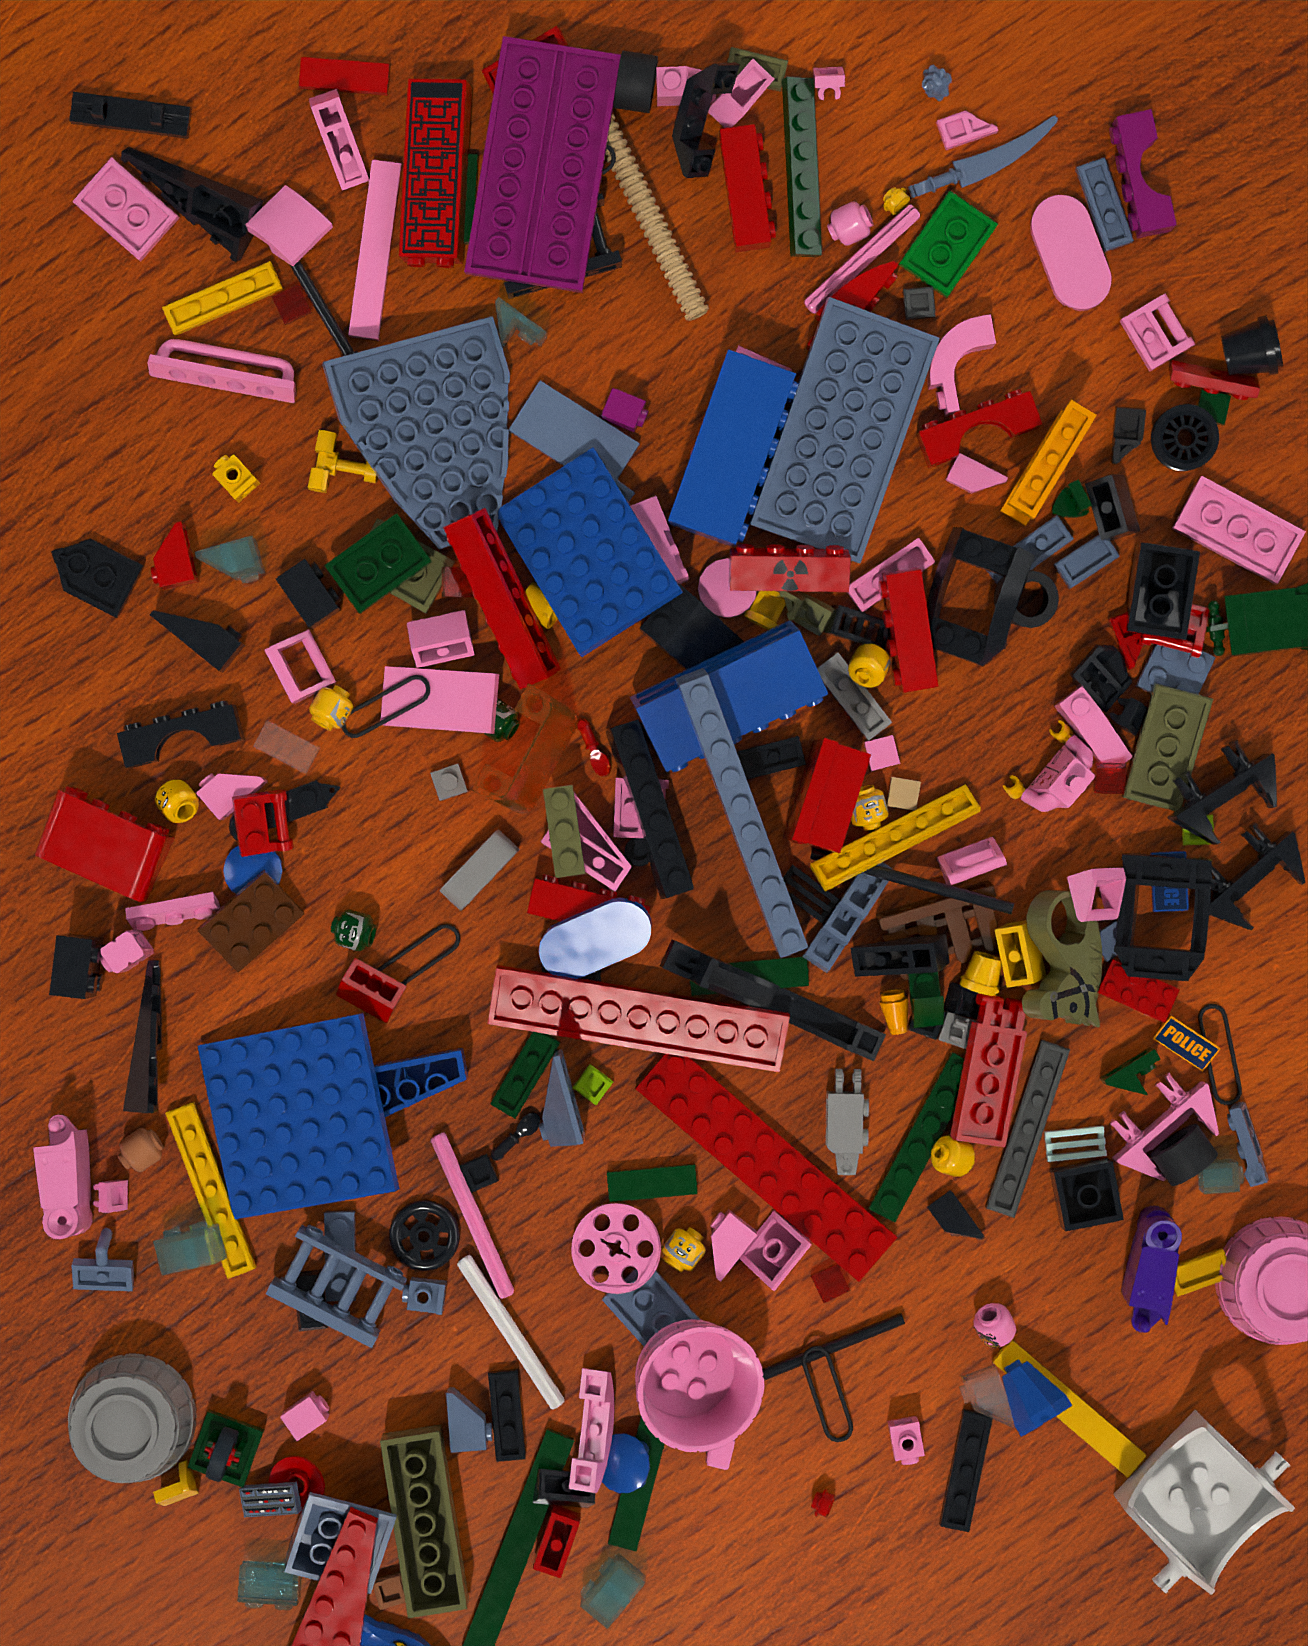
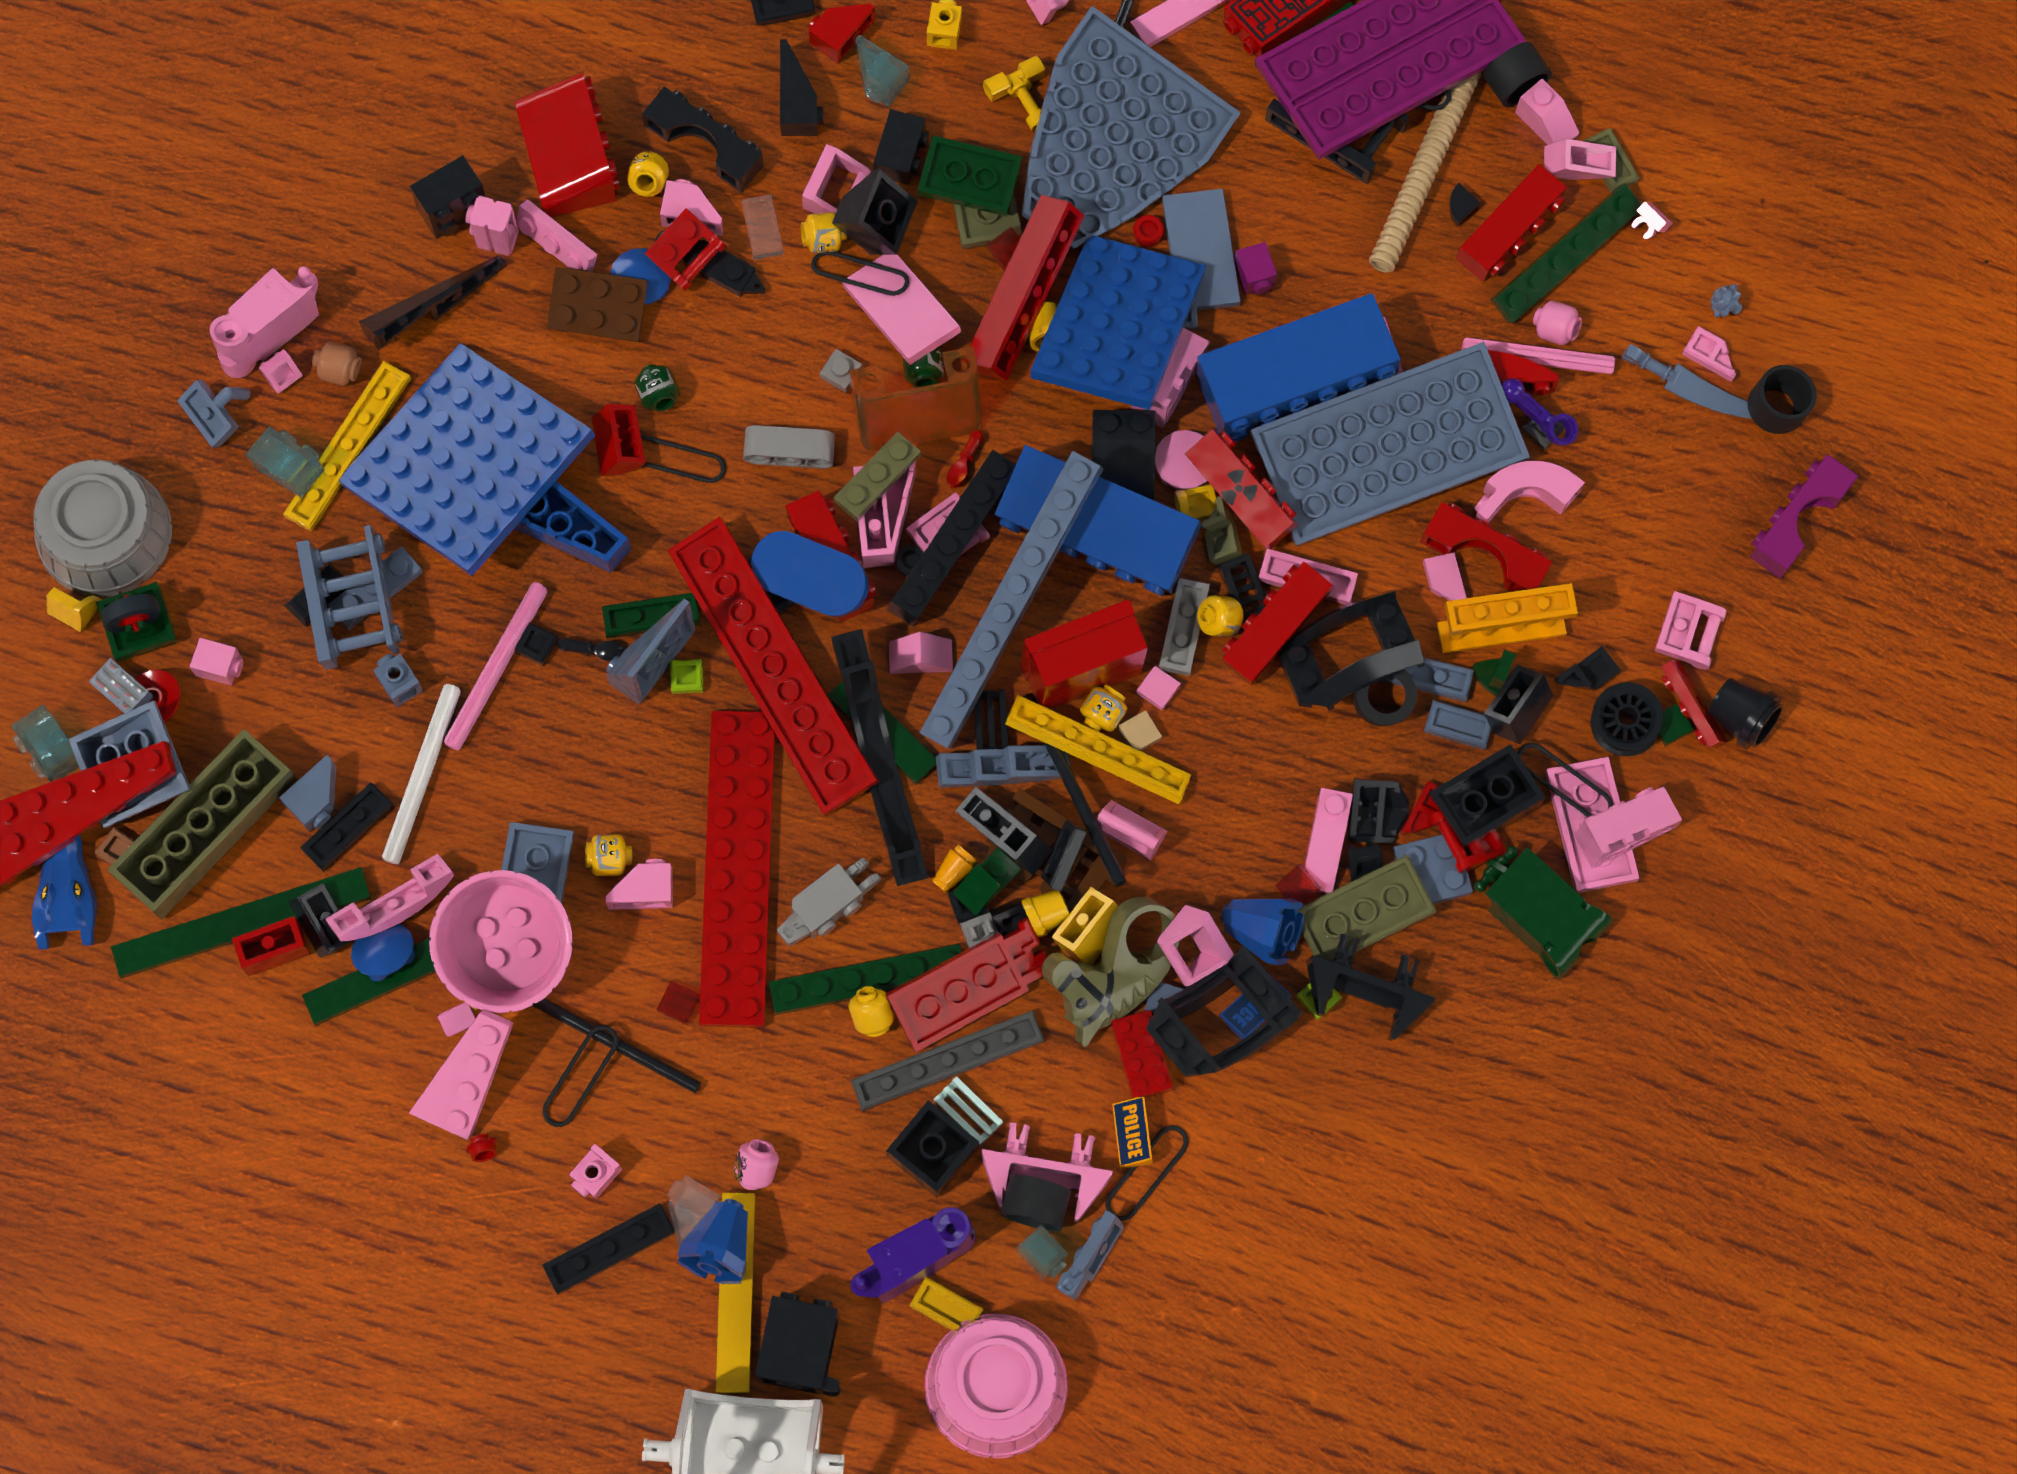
camera: 50 degrees right, 15 degrees down
(353, 659) = (876, 214): none -> black slope
(399, 1231) = (443, 667): black plate -> none
(440, 639) = (950, 270): bright pink brick -> none
(511, 320) = (1248, 131): clear light blue slope -> none
(526, 462) = (1148, 230): none -> red tile
(602, 1255) = (550, 804): bright pink wedge -> none
(611, 1590) = (264, 1029): clear light blue brick -> none
(652, 1182) = (643, 788): dark green tile -> none
(692, 152) = (1532, 135): black slope -> none
(697, 211) = (1461, 204): none -> black tile
(716, 903) = (920, 654): none -> bright pink slope
(768, 1481) = (463, 1081): none -> bright pink wing
(772, 757) = (1069, 595): black plate -> none
(775, 1250) = (669, 932): bright pink slope -> none
(883, 305) = (1516, 394): none -> dark purple piece
(895, 200) = (1607, 343): yellow plate -> none
(948, 244) = (1612, 412): green tile -> none
(954, 1217) = (819, 1059): black slope -> none
(956, 930) = (1063, 855): none -> black tile
(1052, 91) = (1794, 384): none -> black piece
(1062, 777) = (1263, 843): bright pink torso -> none
(1070, 252) = (1690, 512): bright pink tile -> none
(1104, 204) = (1752, 508): sand blue tile -> none
(1121, 829) = (1265, 926): none -> blue cone
(1125, 1074) = (1061, 1101): dark green slope -> none
(1149, 1399) = (799, 1345): none -> black container
(1195, 510) = (1572, 771): none -> black piece
(1225, 892) = (1289, 1064): black hose -> none
(1267, 510) = (1627, 826): none -> bright pink wedge

